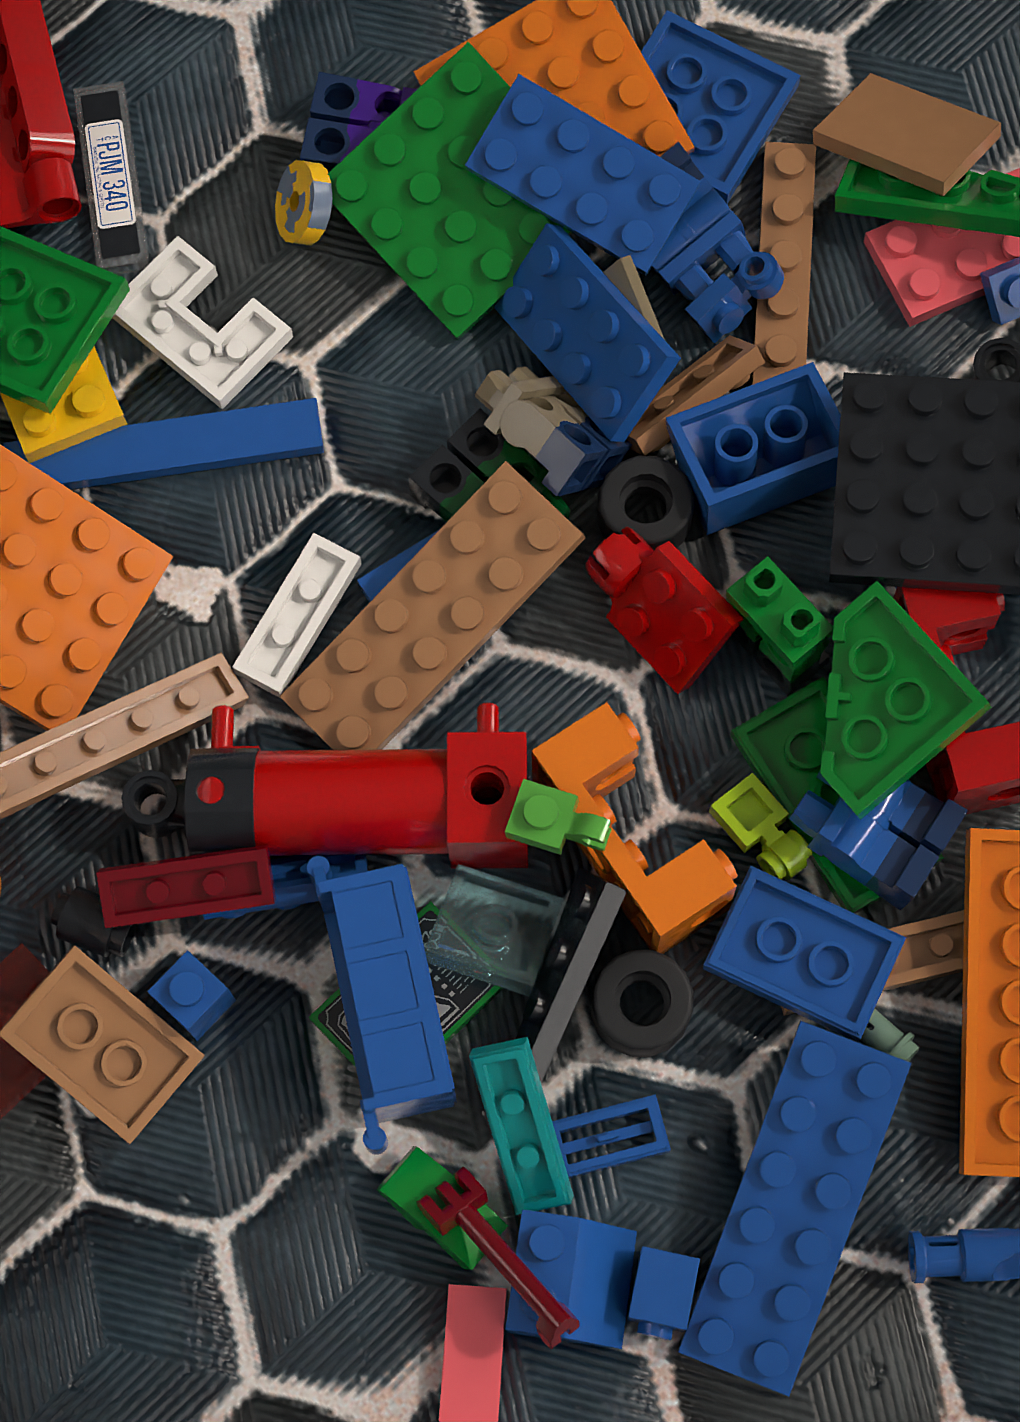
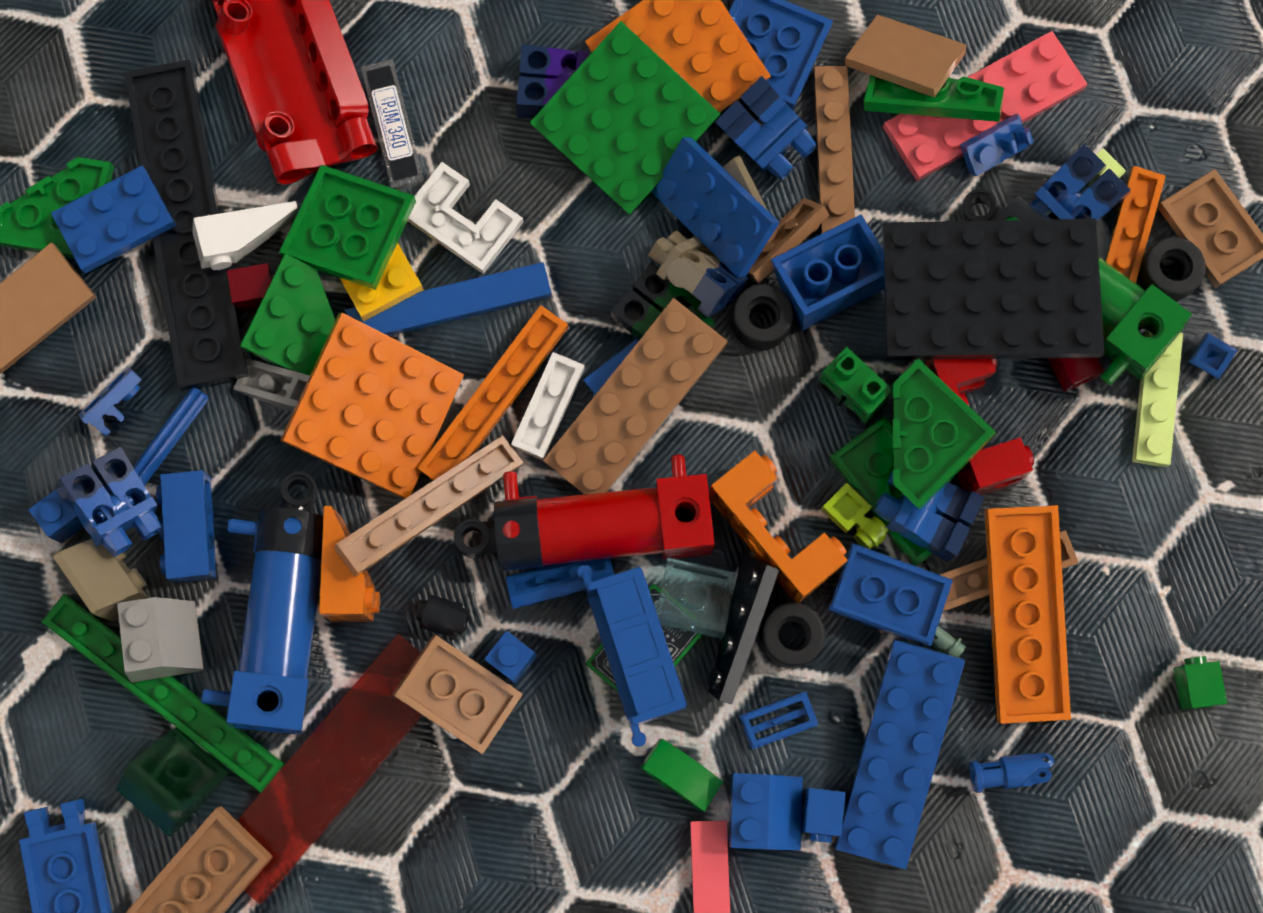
camera: 10 degrees left, 5 degrees up
(186, 886) = (501, 590): dark red plate -> none
(220, 586) = (495, 393): none -> orange plate
(303, 202) = (521, 133): piece -> none
(462, 1211) = (696, 777): dark red hinge -> none
(521, 1125) = (726, 720): teal tile -> none
(549, 817) = (726, 528): bright green plate -> none
(582, 174) = (702, 103): blue plate -> none
(662, 606) = (780, 381): red plate -> none
(725, 301) = (800, 177): blue plate -> none

